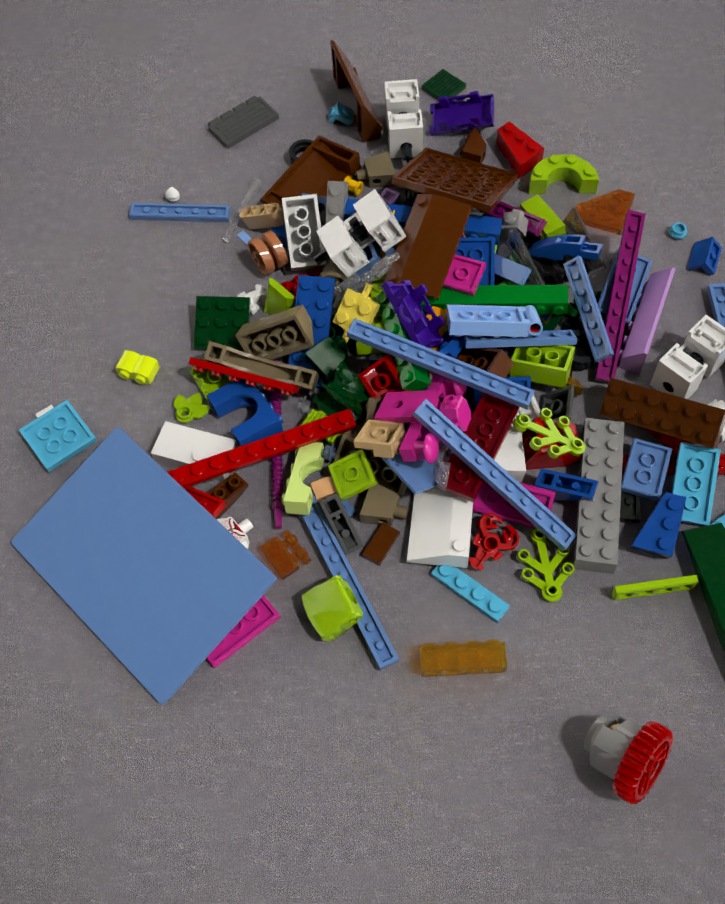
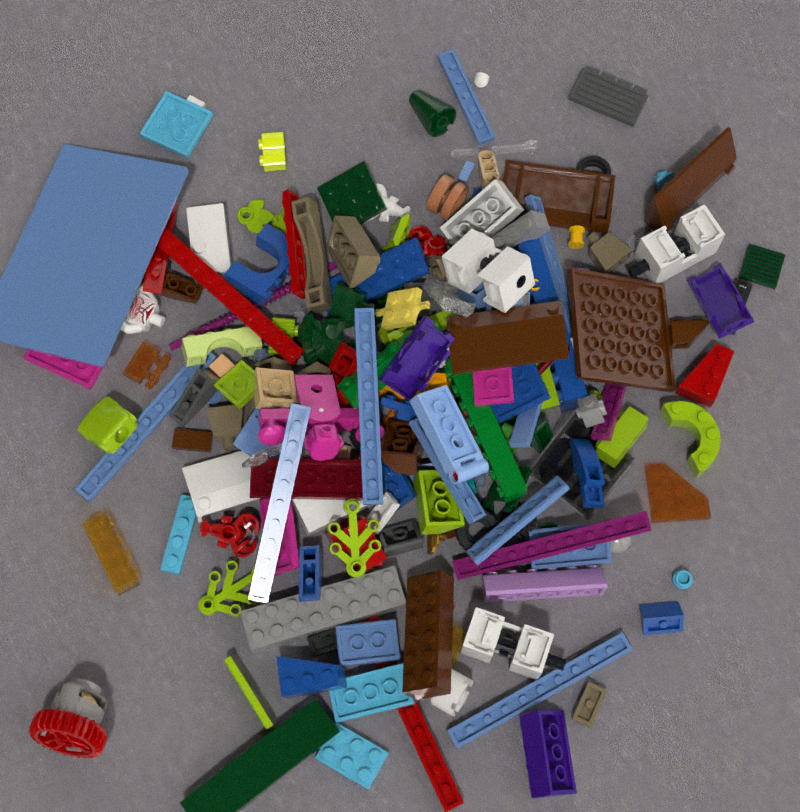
camera: 60 degrees right, 10 degrees up
(179, 236) = (432, 112): none -> dark green cone

